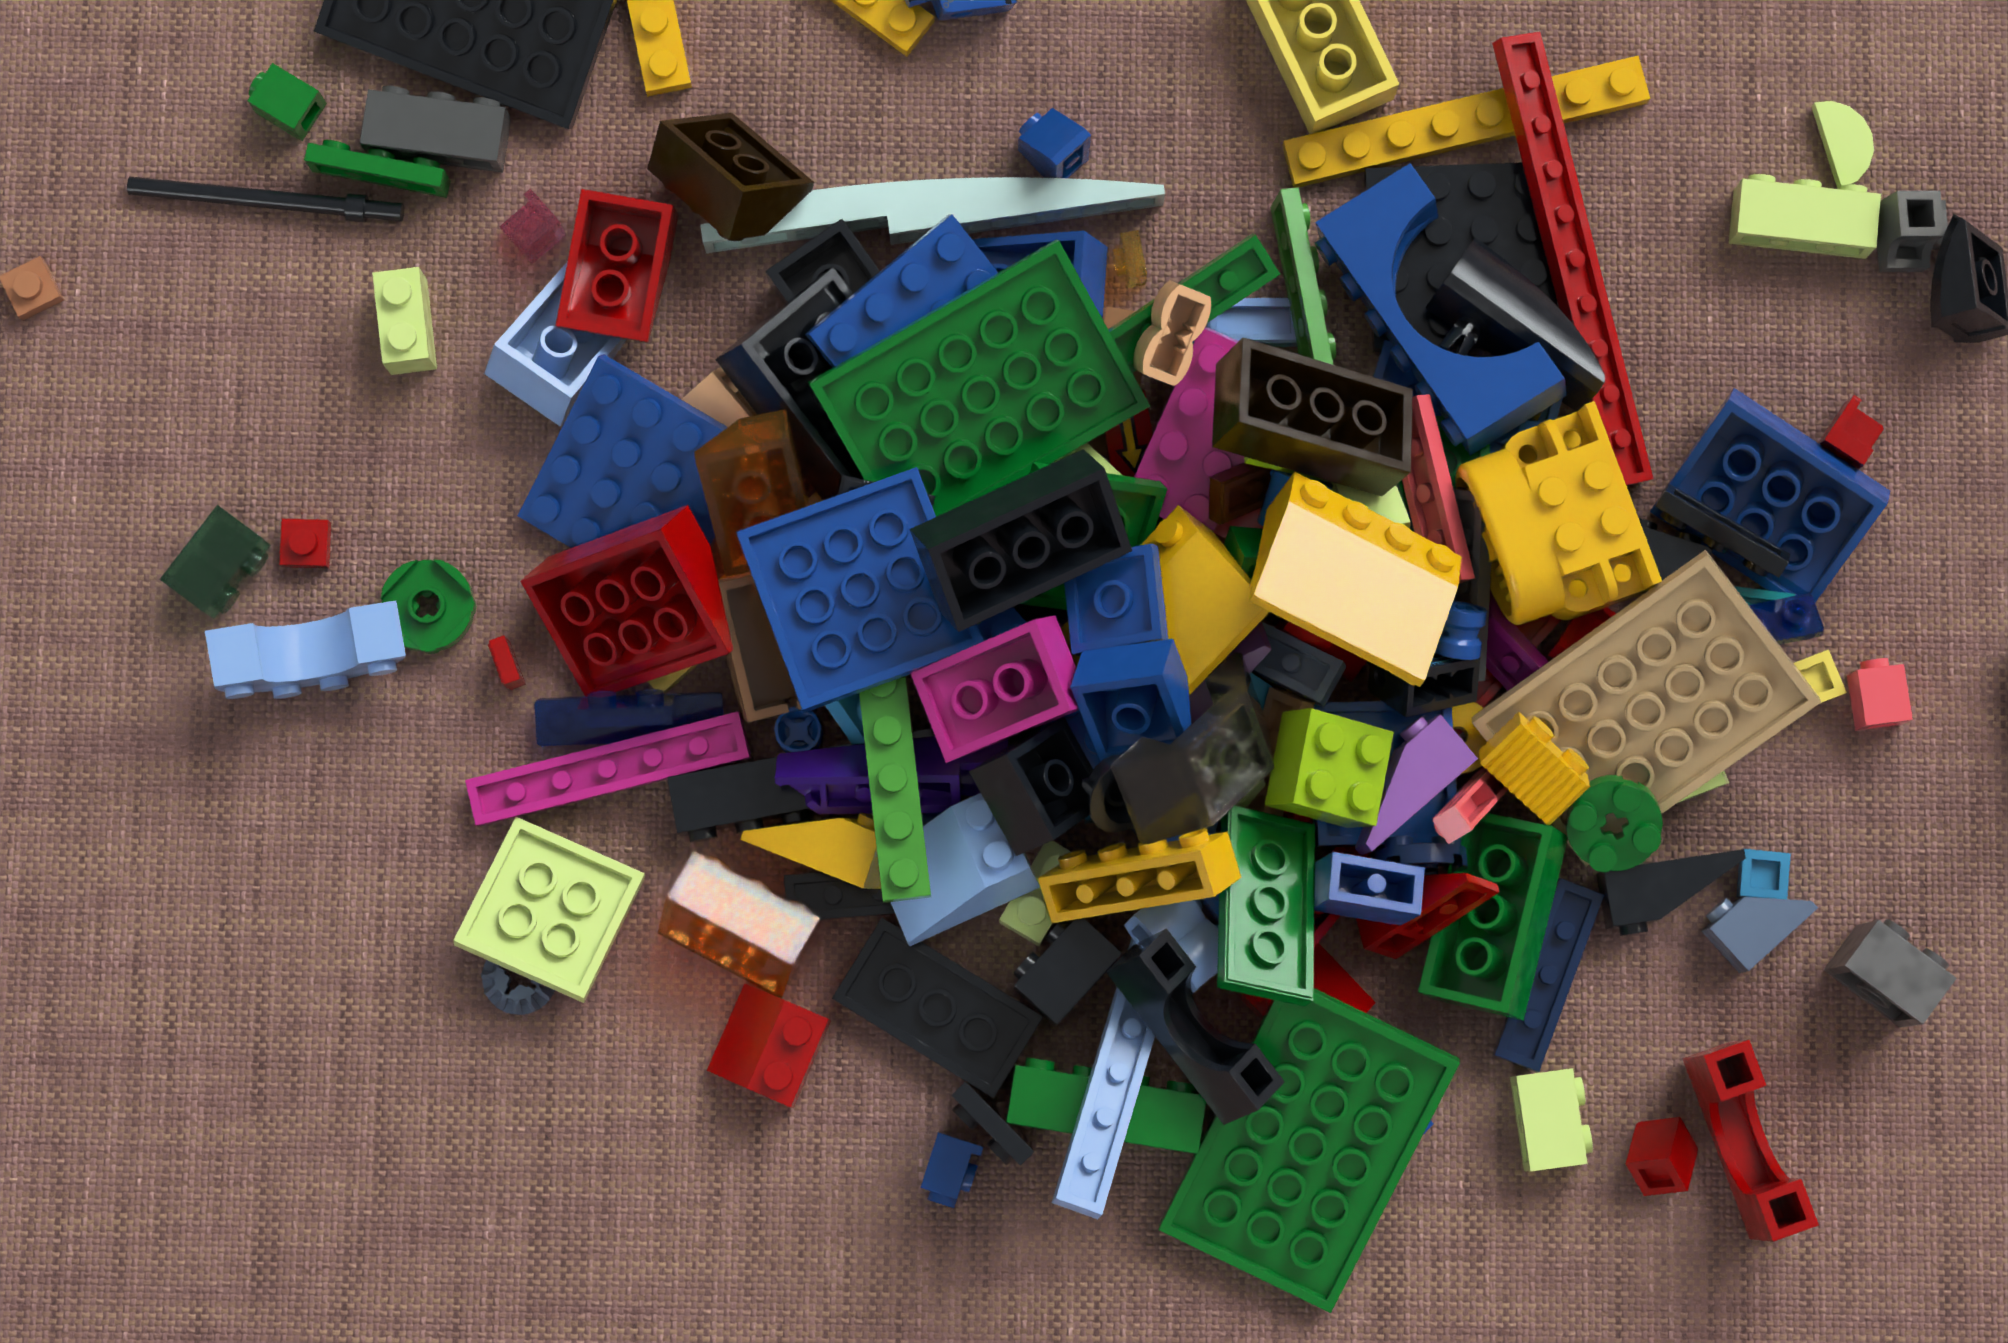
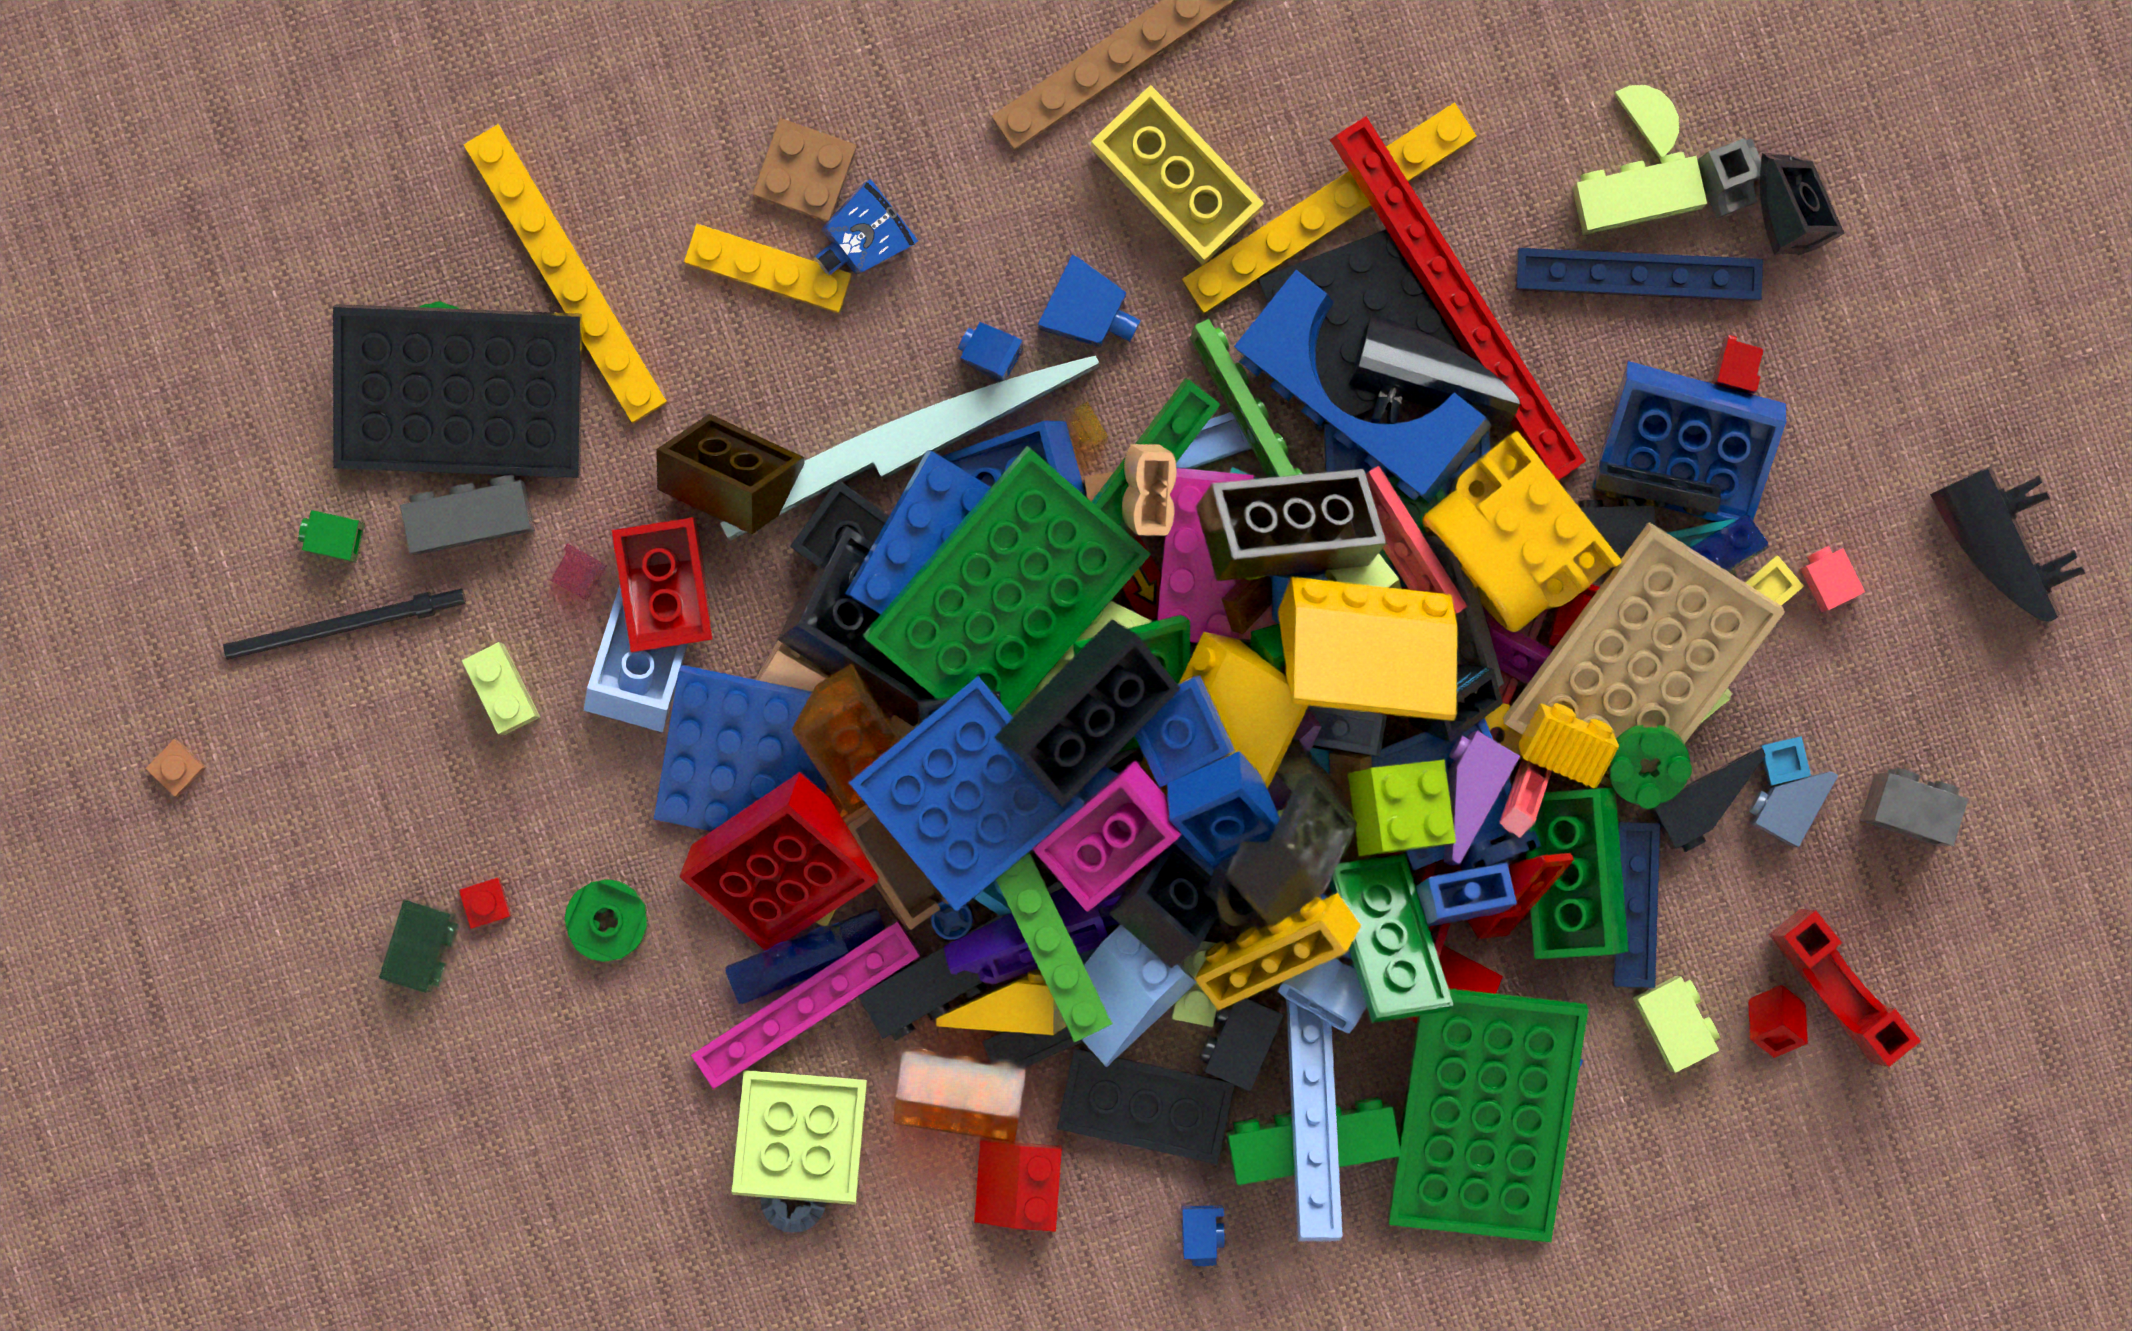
camera: 20 degrees left, 5 degrees up
(306, 654) = (524, 995): light blue brick -> none
(378, 168) = (430, 565): green plate -> none
(506, 662) = (689, 945): red tile -> none
(1004, 1140) = (1239, 1198): black plate -> none
(1171, 135) = (1087, 307): none -> blue torso
(1226, 1072) = (1401, 1084): black arch -> none
(1460, 631) = (1472, 658): blue wheel -> none
(1776, 302) = (1639, 274): none -> dark blue plate

